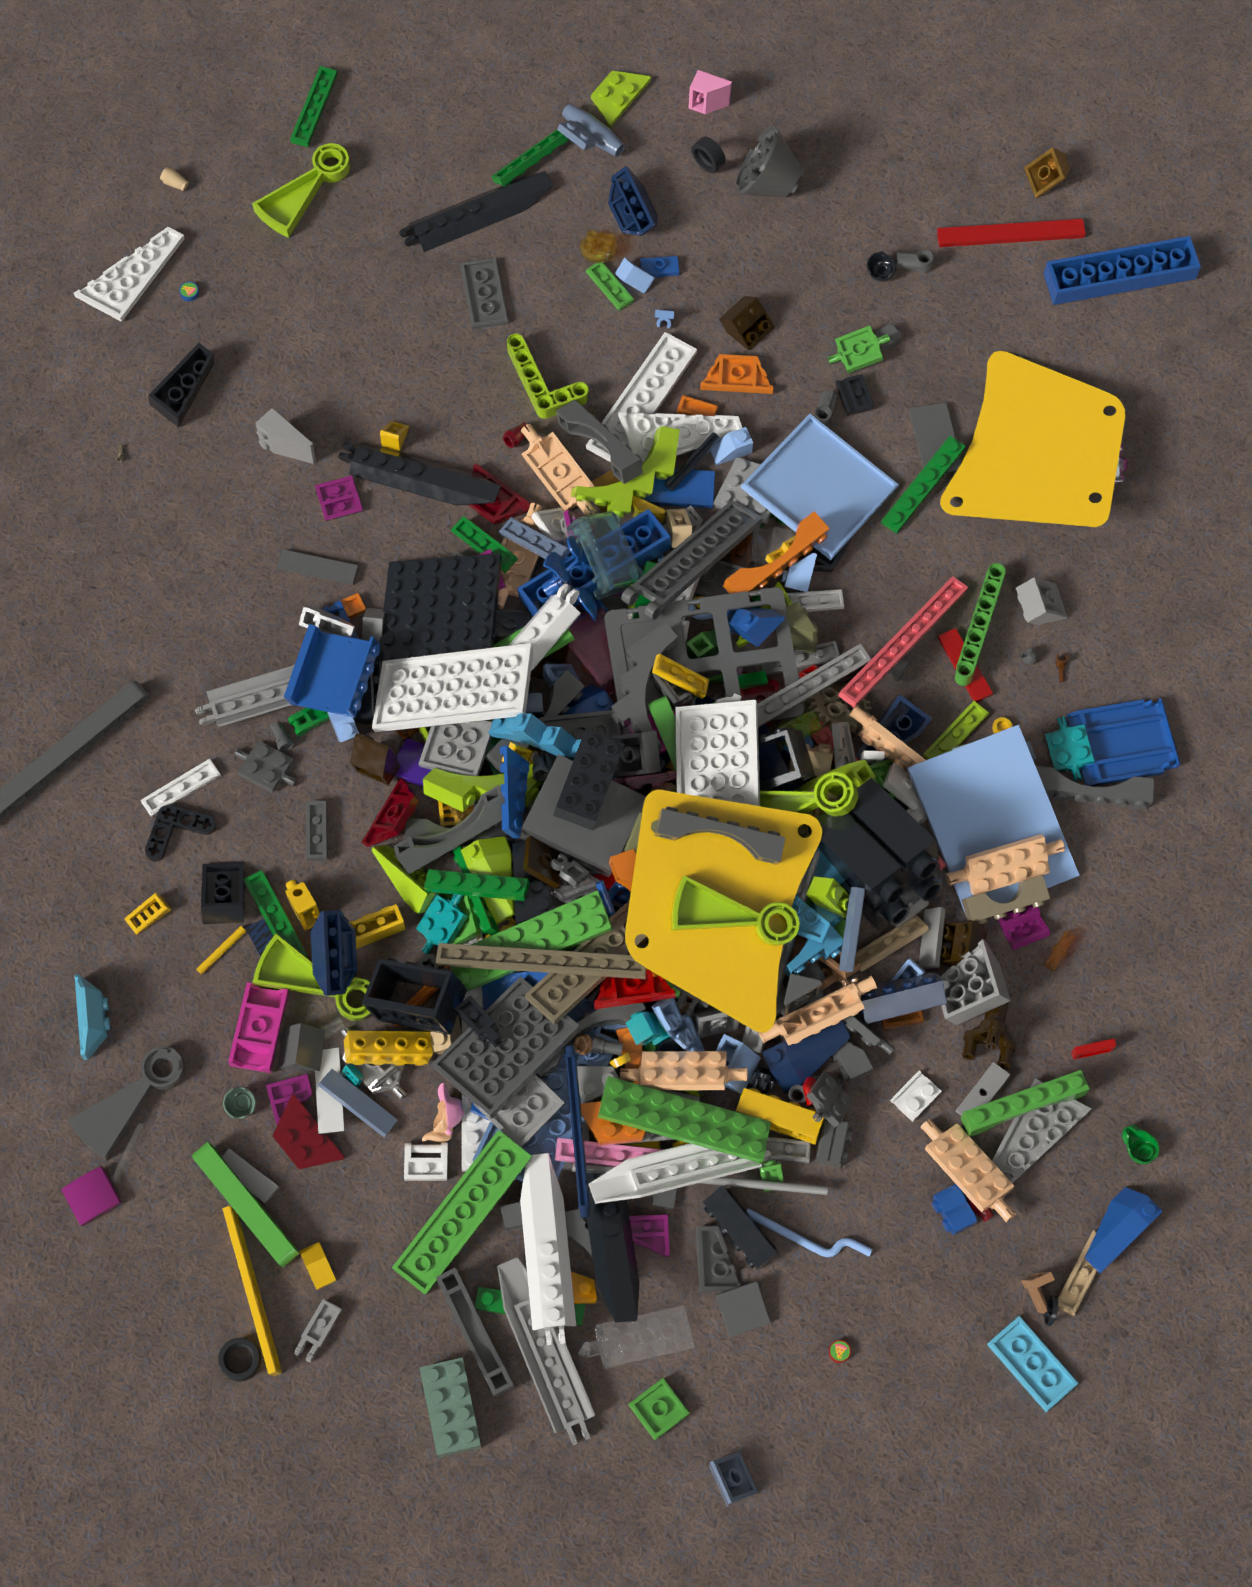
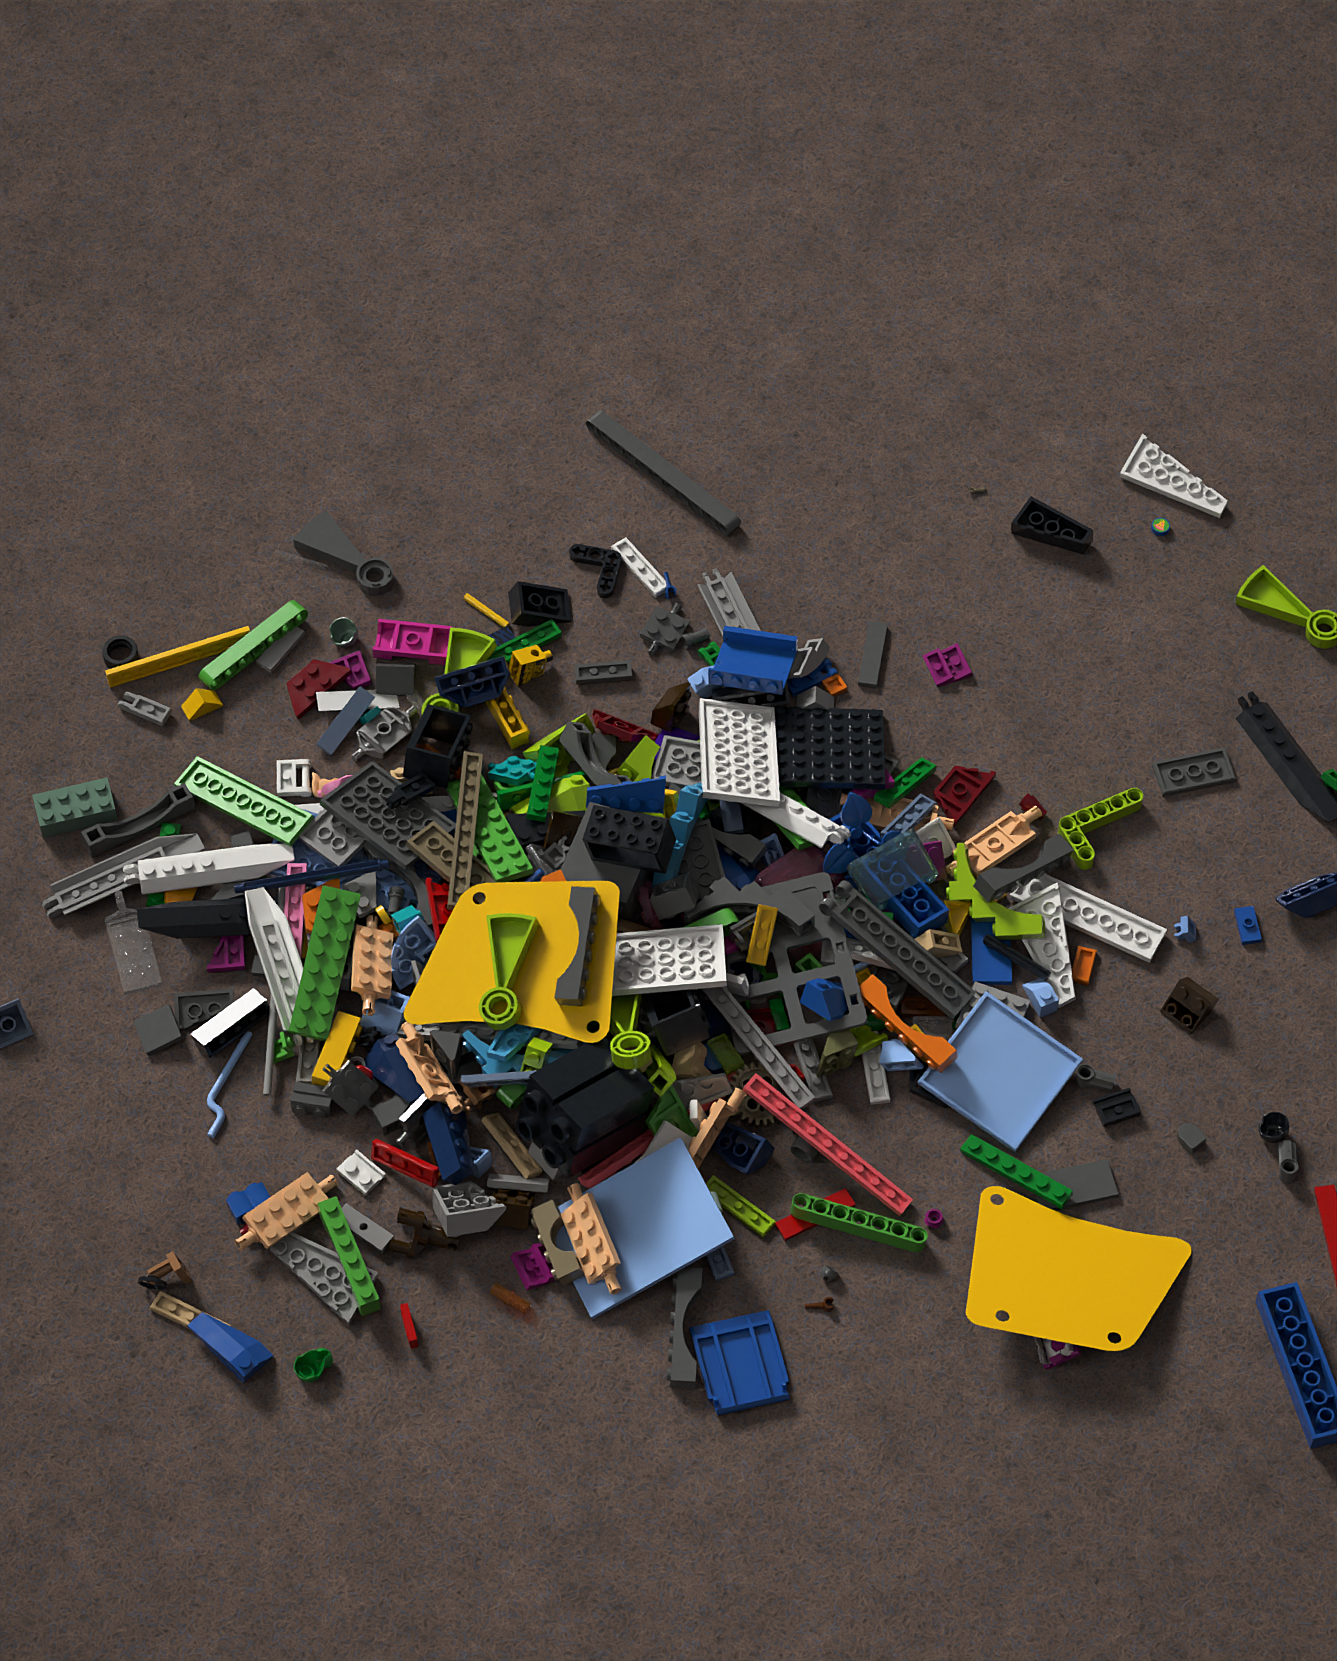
camera: 90 degrees right, 10 degrees down
(91, 1016) = (420, 517): medium azure wedge -> none
(91, 1195) = (262, 536): magenta slope -> none
(150, 902) = (524, 563): yellow slope -> none
(174, 179) = (1284, 502): tan cone -> none
(212, 758) = (670, 588): none -> blue hand
(283, 438) = (1005, 607): light grey slope -> none
(388, 1047) = (392, 732): yellow brick -> none
(393, 435) = (1021, 703): yellow slope -> none
(418, 475) = (978, 726): black hinge -> none
(583, 1044) = (396, 880): medium nougat plate -> none
(598, 246) = (1261, 867): clear yellow tile -> none
(610, 285) = (1219, 881): bright green tile -> none
(634, 276) = (1229, 900): light blue slope -> none
(658, 1409) = (71, 967): bright green plate -> none
(737, 374) = (1126, 998): orange wing -> none
(839, 1351) = (119, 1111): tile -> none
(859, 349) = (1170, 1108): bright green plate -> none
(915, 1046) = (404, 1163): none -> red tile
(970, 556) = (934, 1213): none -> magenta plate
(1001, 724) = (748, 1249): yellow tile -> none
(1032, 1363) = (105, 1272): medium azure tile -> none
(1040, 601) = (891, 1284): light grey slope -> none
(1069, 748) = (728, 1309): teal plate -> none

